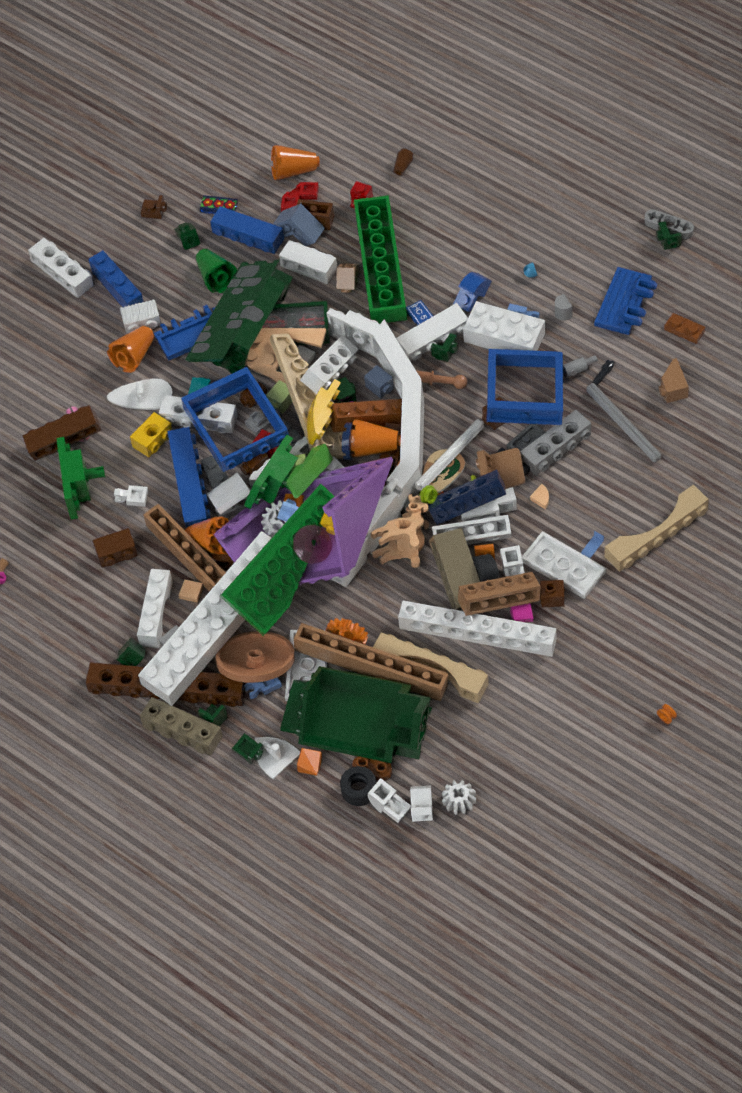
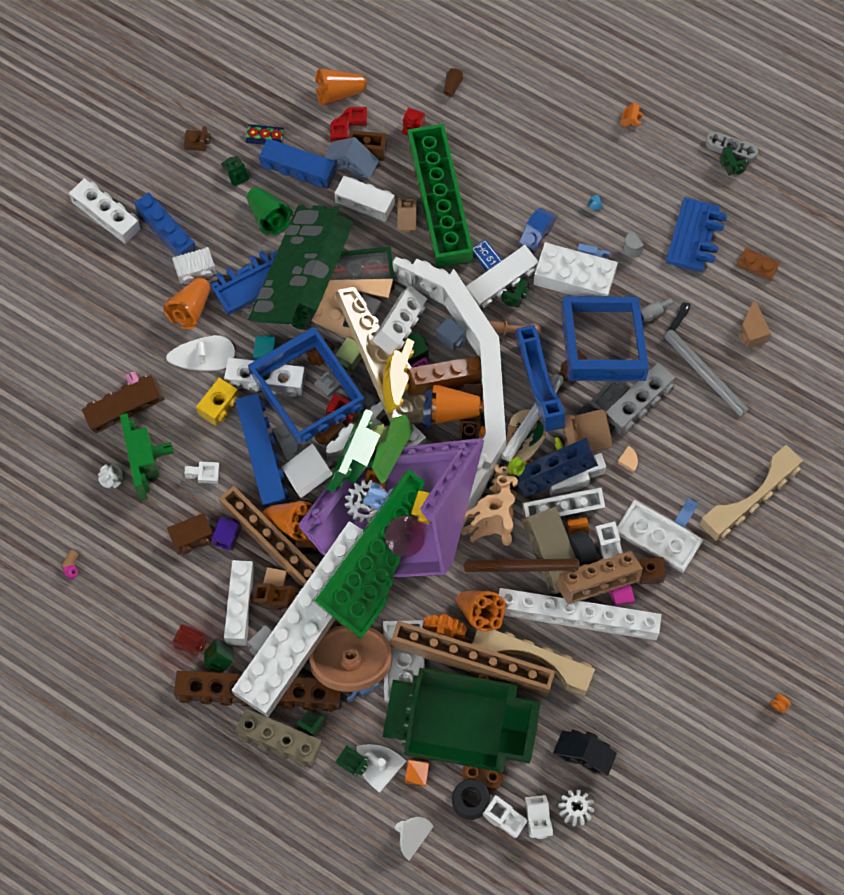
camera: 10 degrees left, 10 degrees up
(44, 495) = (110, 476): none -> white gear
(105, 639) = (189, 640): none -> clear red brick
(148, 549) = (226, 533): none -> dark purple brick
(183, 603) = (273, 597): none -> reddish brown brick
(300, 812) = (412, 834): none -> white shield
(384, 616) = (482, 609): none -> orange cone
(425, 581) = (521, 565): none -> reddish brown axle
(458, 419) = (543, 391): none -> blue arch
(472, 745) = (586, 751): none -> black brick
(572, 194) = (630, 115): none -> orange tile

